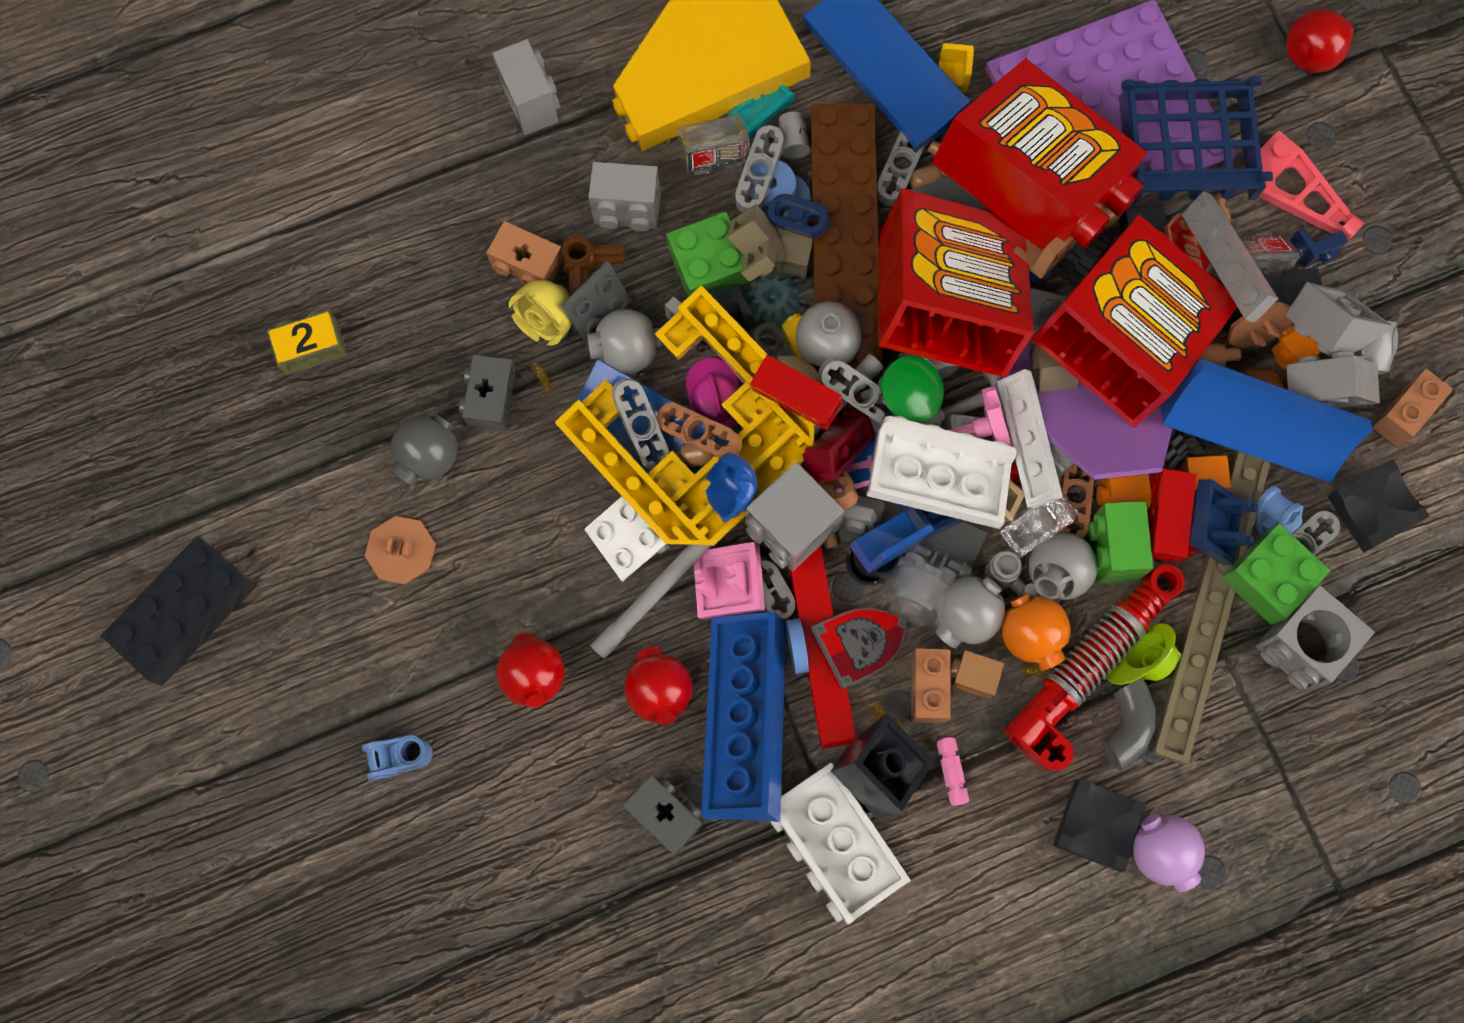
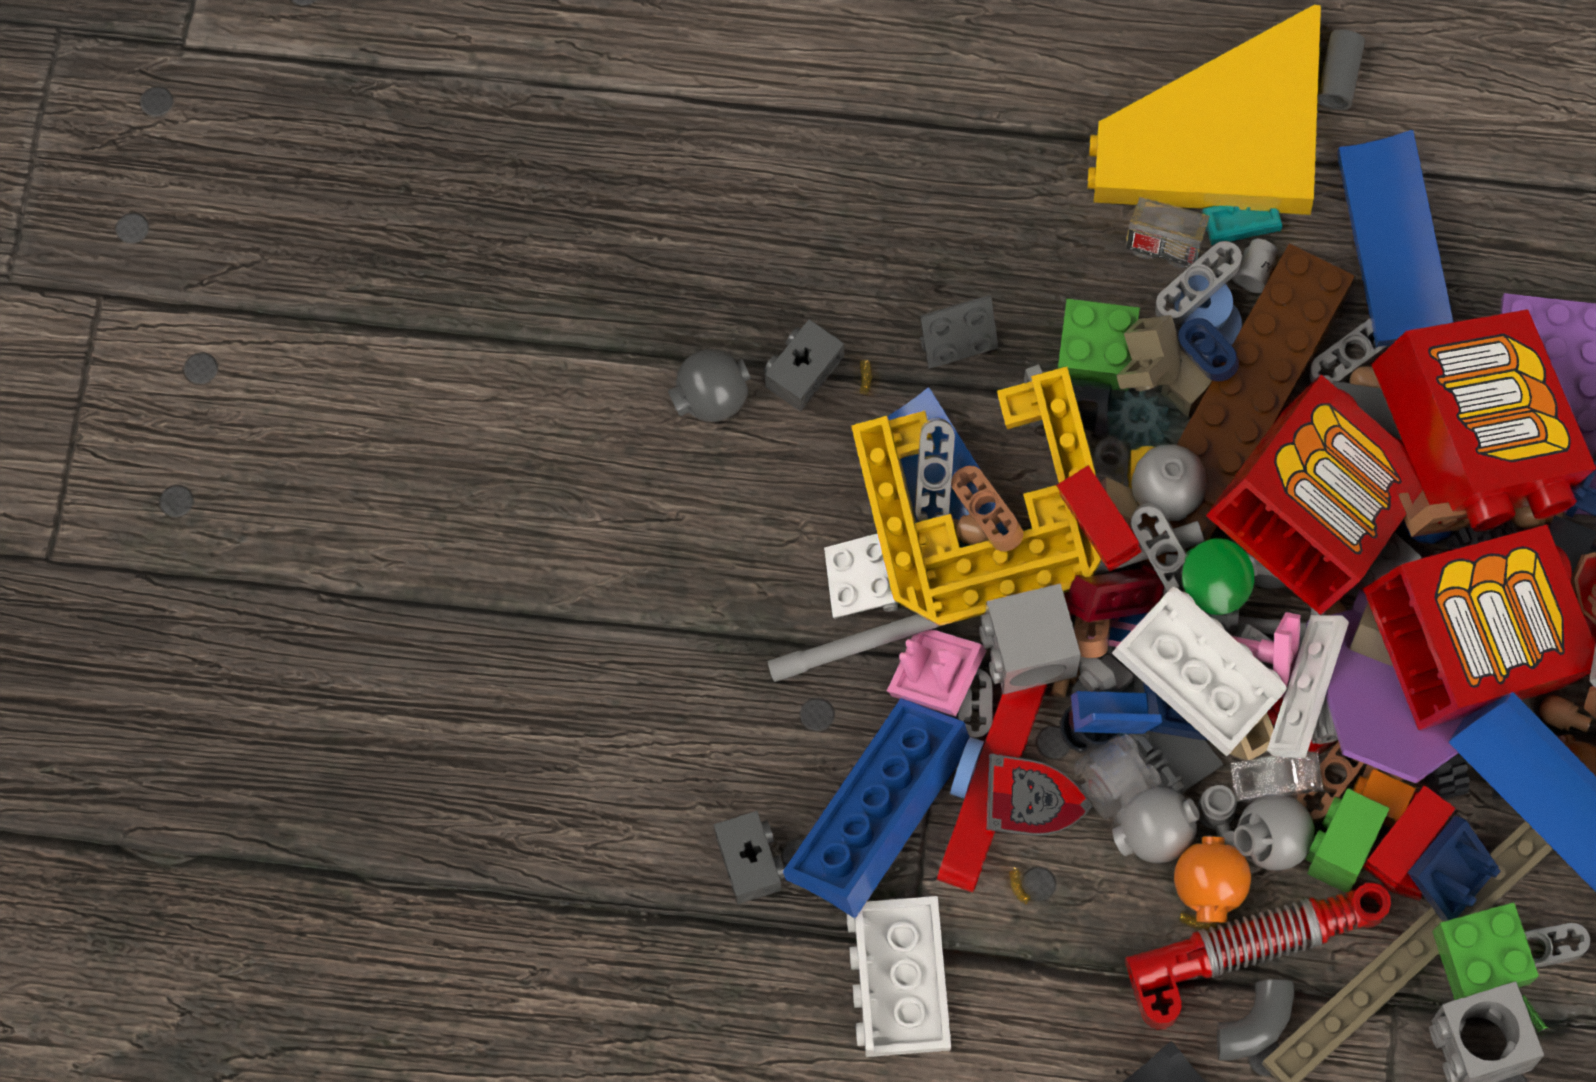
camera: 30 degrees right, 5 degrees down
(178, 611) = (395, 417): black brick -> none
(307, 342) = (654, 222): brick -> none
(390, 757) = (517, 662): medium blue piece -> none
(400, 550) = (634, 473): nougat piece -> none
(518, 243) = (912, 230): nougat brick -> none
(527, 86) = (1011, 79): light grey brick -> none
(530, 671) = (696, 652): red brick -> none
(540, 311) = (898, 311): light yellow cylinder -> none
(594, 255) = (985, 283): reddish brown axle -> none
(624, 196) = (1047, 240): light grey brick -> none
(624, 341) = (965, 384): light grey brick -> none
(658, 686) = (810, 733): red brick -> none
(709, 386) = (1024, 471): dark pink piece -> none
(731, 486) = (986, 574): blue hair -> none
(883, 767) = (985, 925): black slope -> none
(930, 686) = (1077, 877): nougat brick -> none
(952, 771) = (1053, 971): bright pink axle -> none
(957, 63) = (1467, 281): yellow panel -> none
(976, 674) = (1129, 891): medium nougat brick -> none
(1150, 659) = (1312, 970): lime piece -> none
(1208, 468) = (1483, 820): orange brick -> none
(1276, 509) = (1531, 903): medium blue piece -> none

